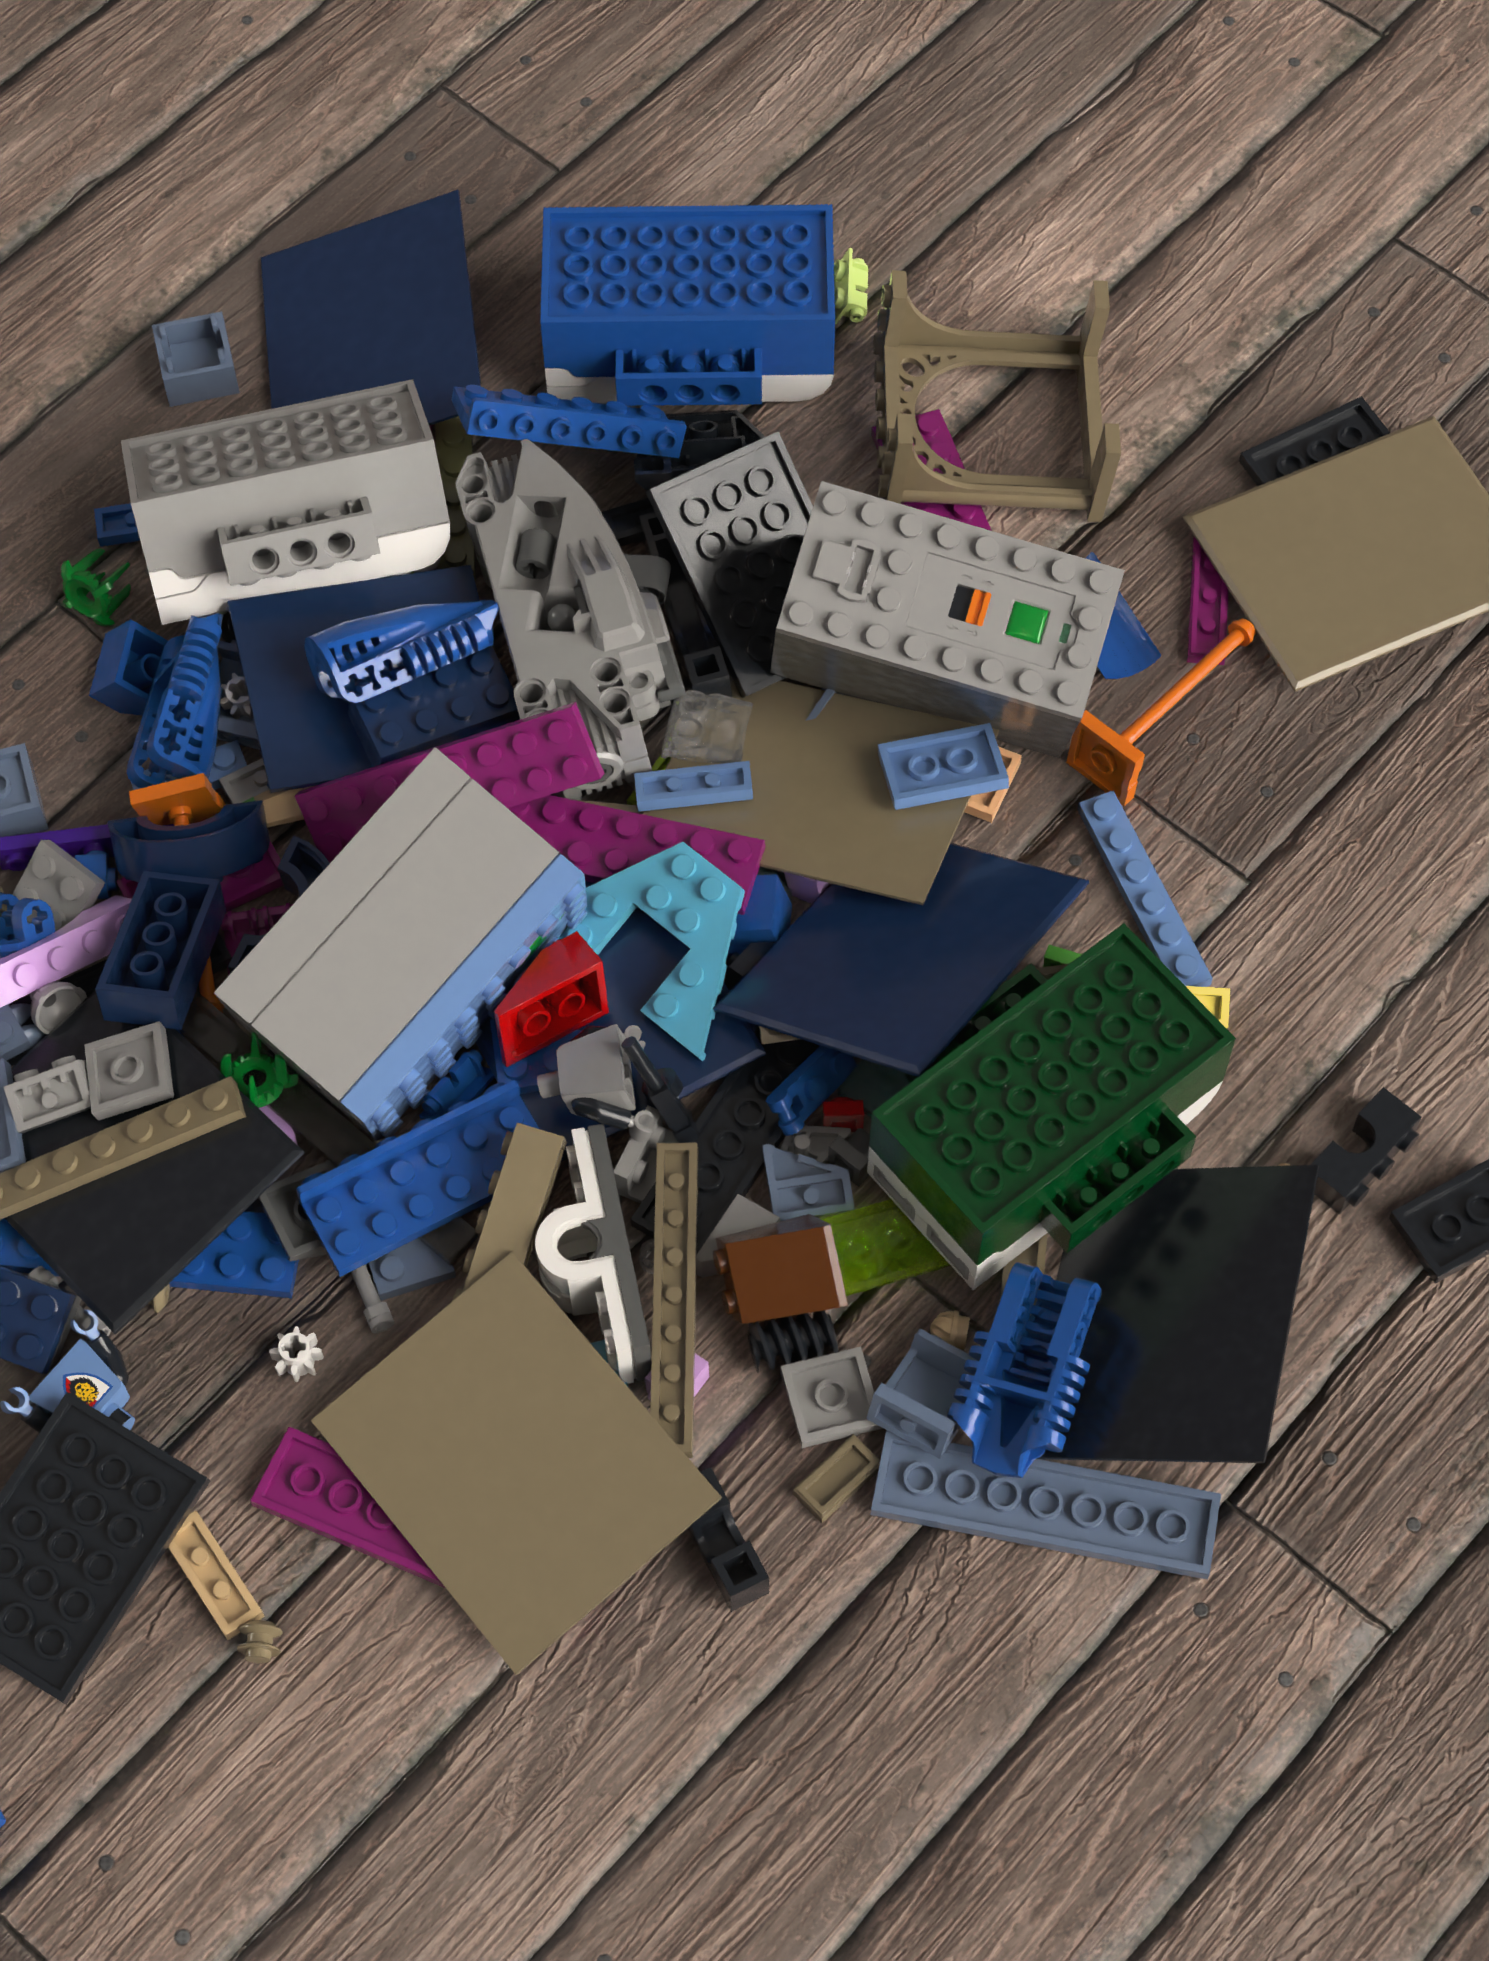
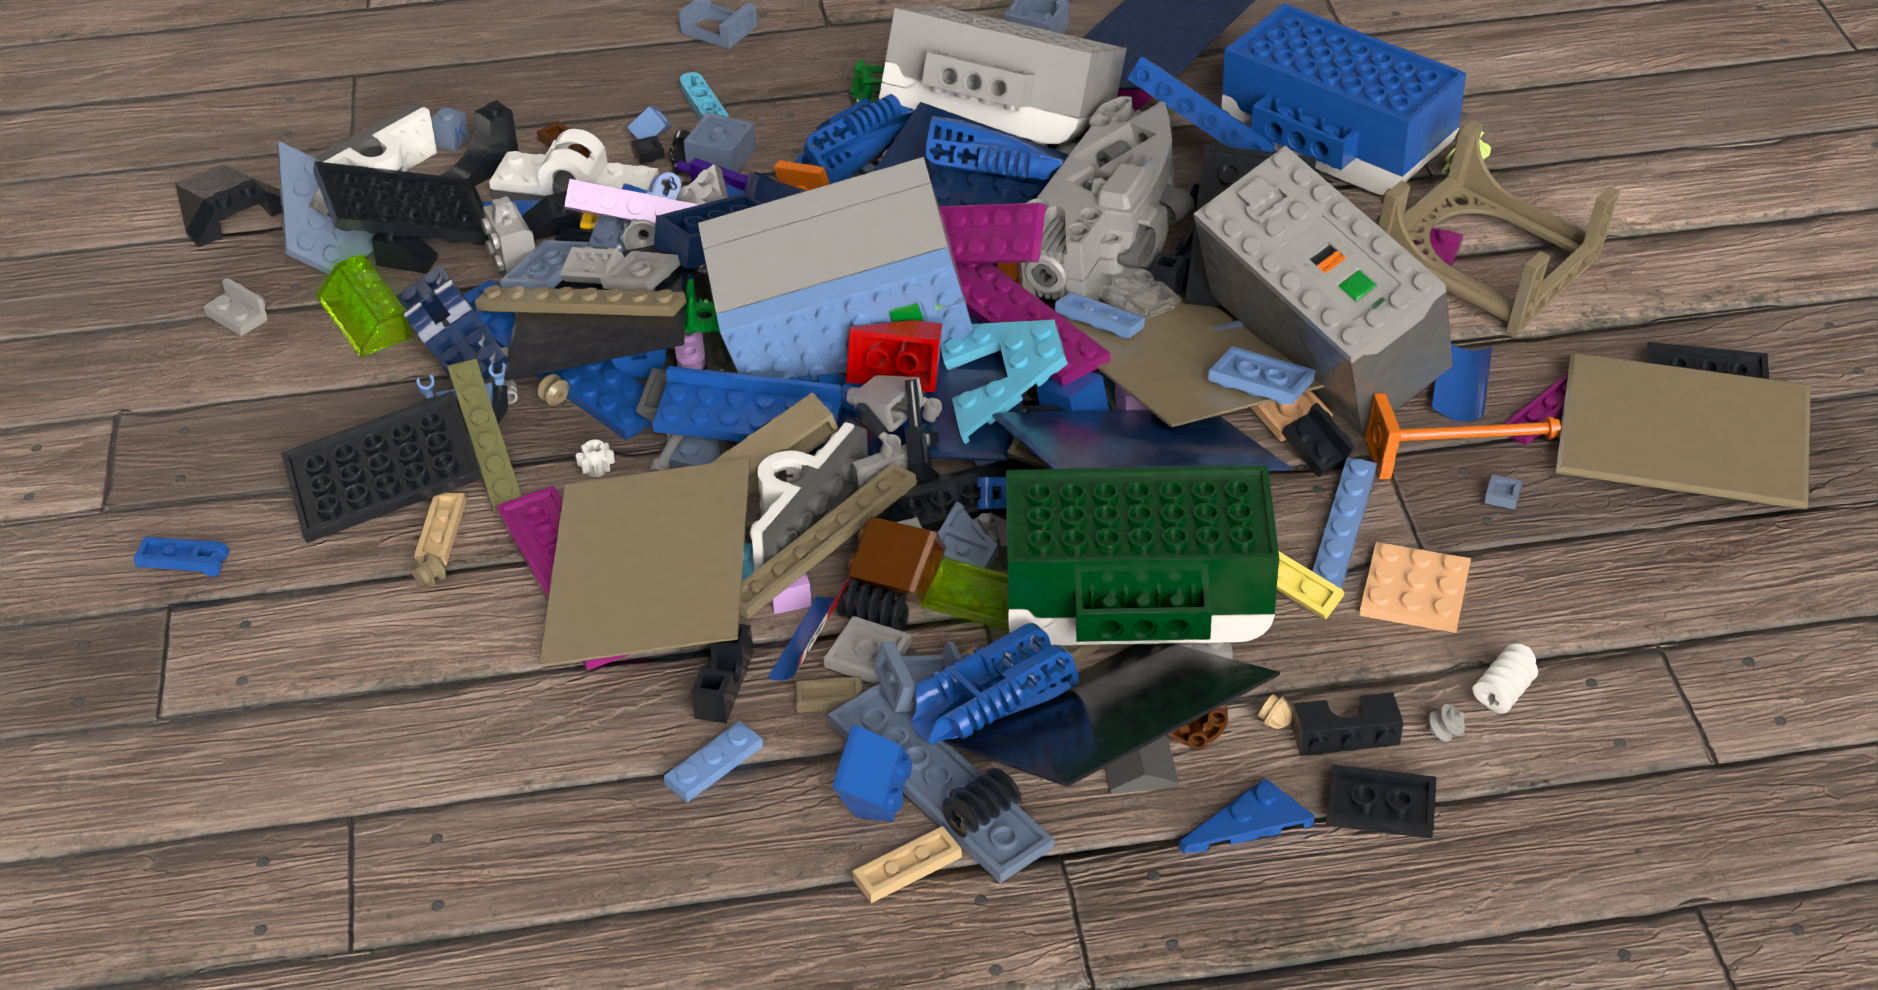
camera: 40 degrees right, 20 degrees down
(146, 1415) = (484, 432): none -> olive plate
(752, 1419) = (805, 637): none -> blue sticker
(800, 1650) = (713, 761): none -> medium blue plate
(1006, 1558) = (872, 775): none -> blue slope
(1040, 802) = (1319, 440): none -> black bracket
(1108, 1628) = (907, 864): none -> tan plate
(1131, 1510) = (979, 801): none -> black piece
(1261, 747) = (1503, 492): none -> sand blue plate
(1275, 927) = (1415, 587): none -> light nougat plate
(1364, 1318) = (1254, 814): none -> blue wing
(1444, 1085) = (1446, 723): none -> light grey wheel
(1458, 990) = (1506, 678): none -> white piece

